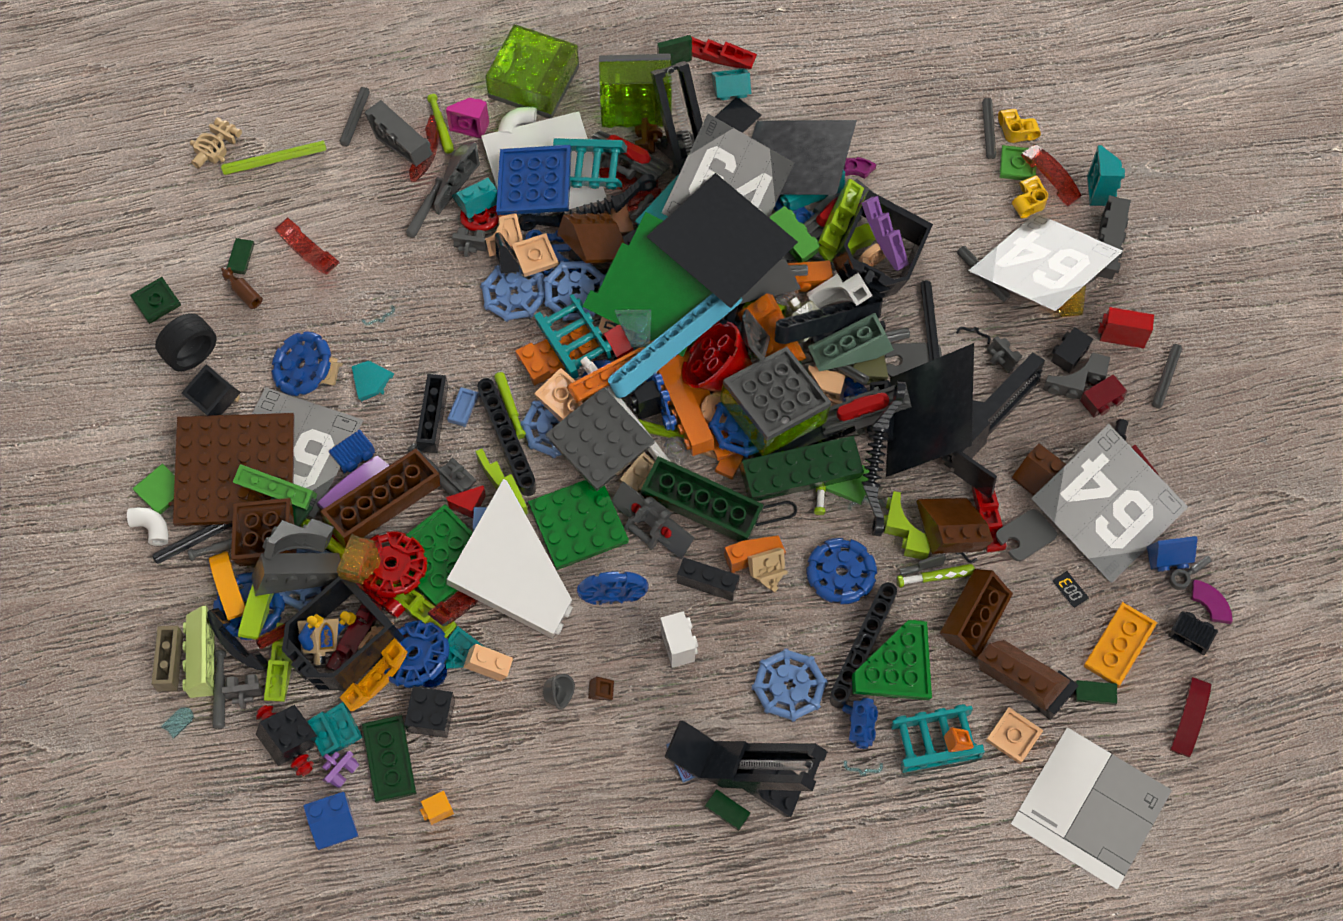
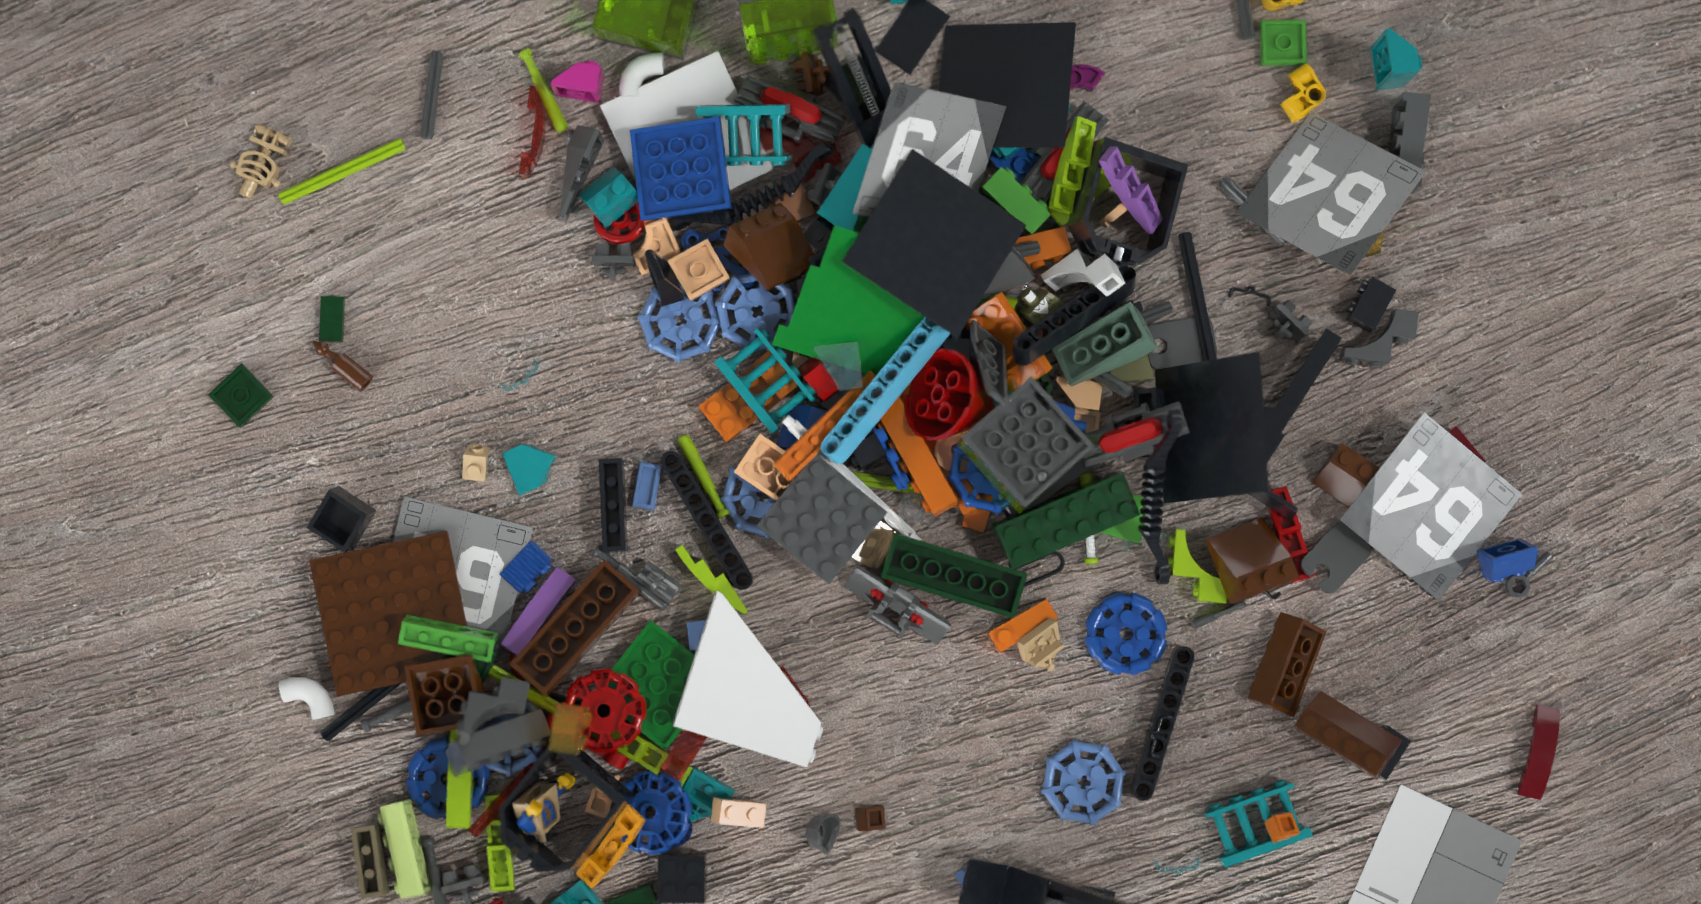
camera: 10 degrees left, 20 degrees up
(157, 489) = (306, 647): bright green tile -> none
(185, 342) = (296, 460): black tyre -> none
(219, 623) = (436, 830): black slope -> none
(227, 585) = (416, 759): light orange slope -> none
(305, 247) = (412, 297): clear red slope -> none
(311, 373) = (429, 462): blue plate -> none
(352, 638) = (575, 804): dark red hinge -> none
(397, 134) = (496, 124): dark grey wedge -> none
(420, 216) = (545, 228): dark grey piece -> none
(466, 501) = (677, 612): red slope -> none
(577, 523) = (809, 619): green plate -> none
(612, 587) = (867, 704): blue plate -> none
(678, 639) = (951, 753): white brick -> none
(708, 579) = (973, 669): black brick -> none
(853, 388) = (1113, 398): clear blue piece -> none
(862, 720) = (1172, 818): blue brick -> none
(898, 666) = (1206, 745): green plate -> none
(936, 575) = (1255, 616): lime piece -> none
(1014, 735) = (1343, 804): light nougat tile -> none
(1054, 172) = (1327, 54): clear red slope -> none
(1070, 589) = (1392, 615): black sticker -> none
(1096, 692) = (1431, 739): dark green tile -> none
(1103, 396) = (1413, 362): dark red brick -> none
(1120, 644) = (1454, 676): light orange tile -> none
(1121, 427) = (1436, 405): black pin -> none
(1126, 327) = (1435, 268): red brick -> none
(1167, 376) = (1487, 320): dark grey axle -> none
(1193, 632) = (1536, 653): black brick -> none
(1212, 601) = (1556, 607): magenta tile -> none

